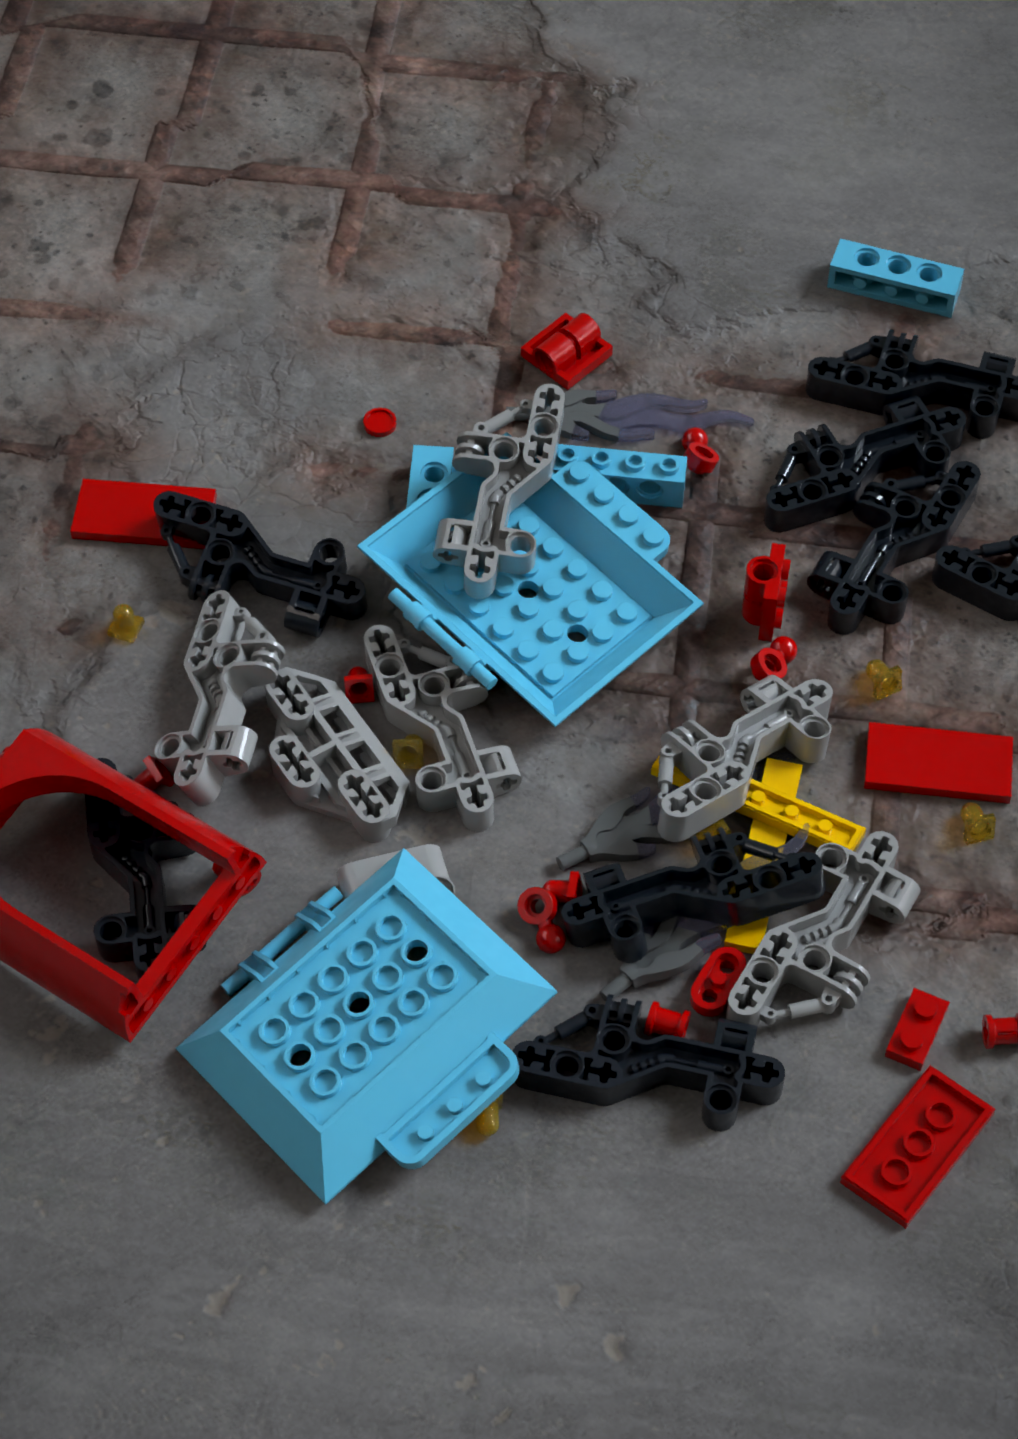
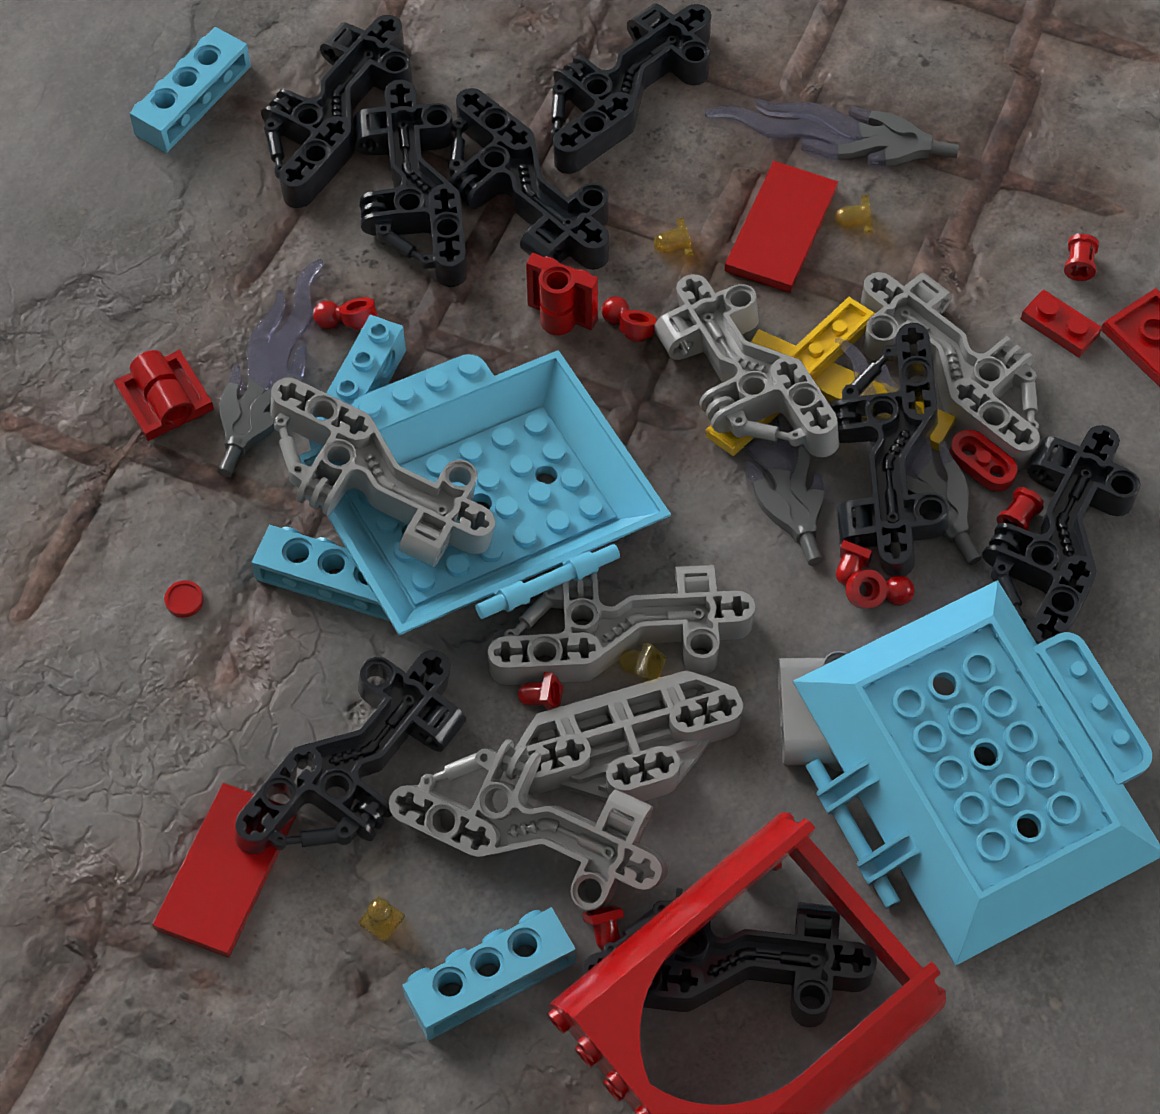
camera: 75 degrees left, 5 degrees up
(50, 677) = (479, 993): none -> medium azure brick

